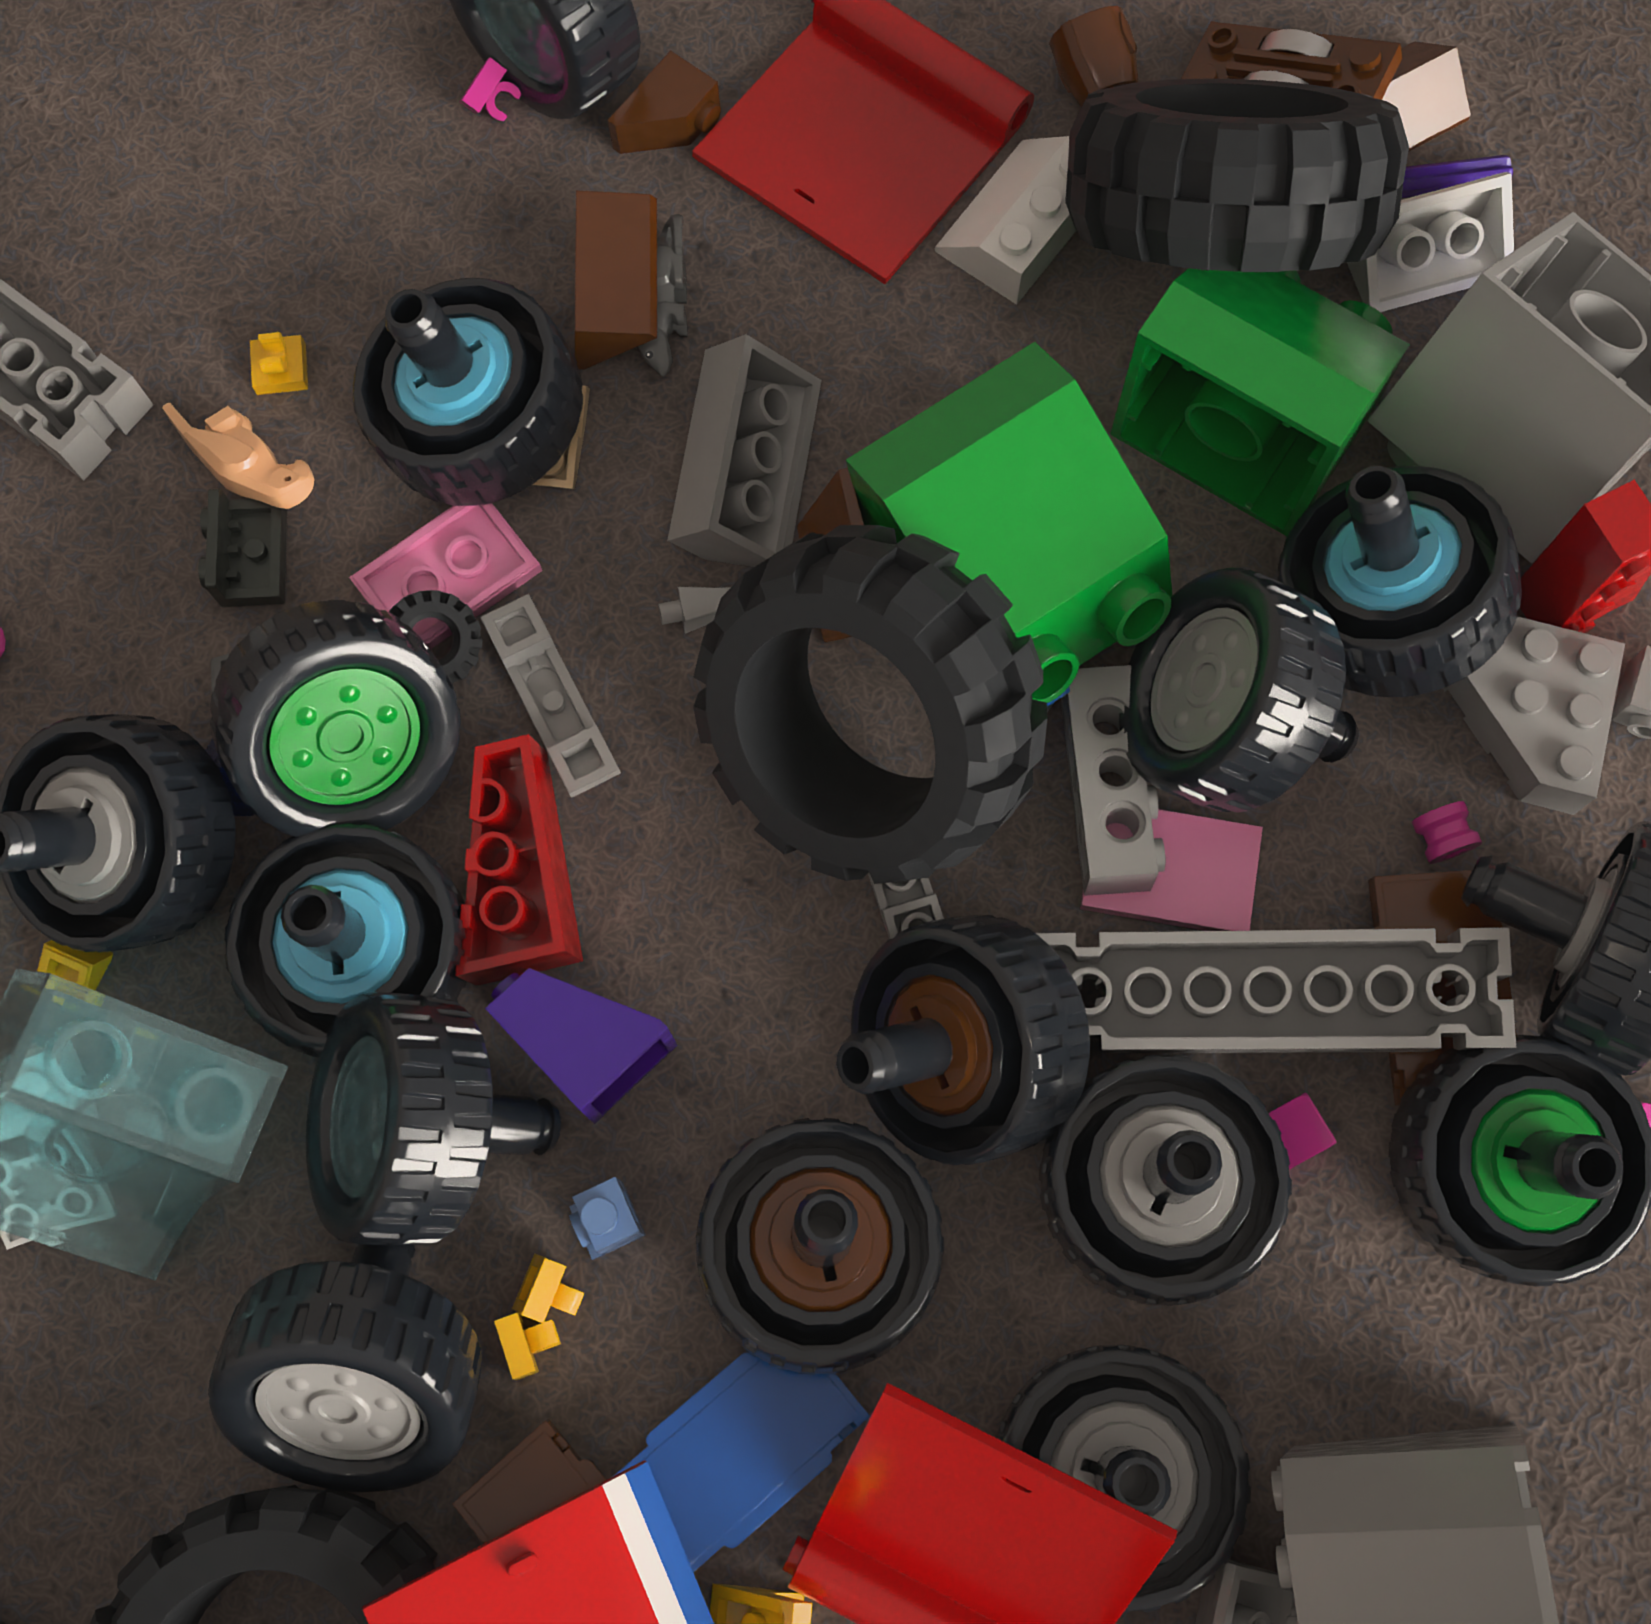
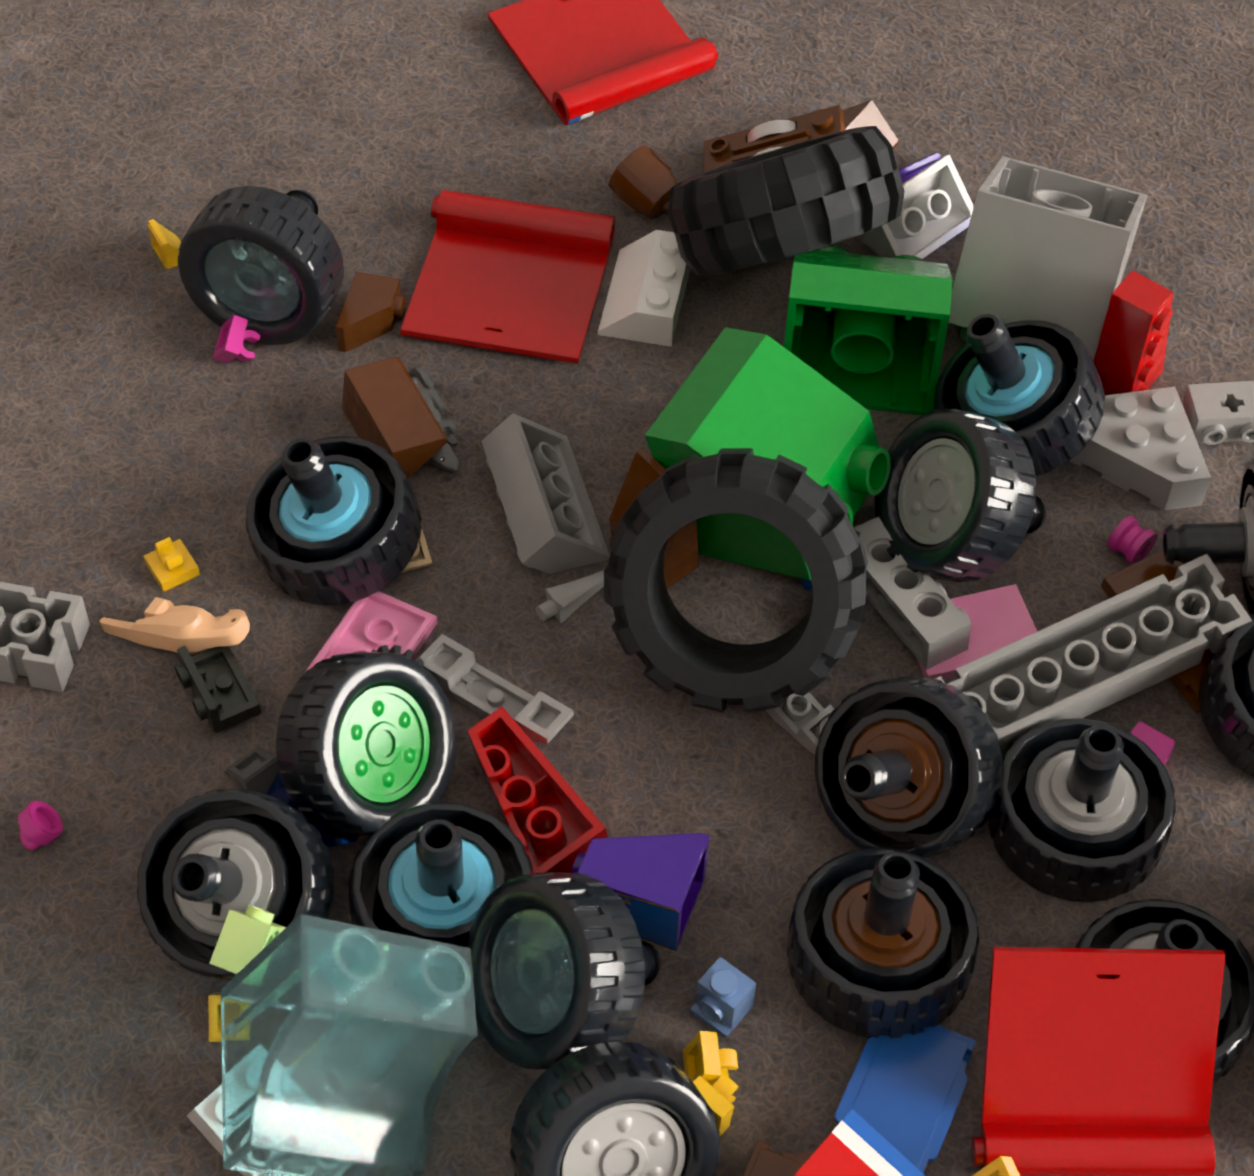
camera: 30 degrees left, 20 degrees down
(67, 928) = (244, 937): none -> yellowish green brick

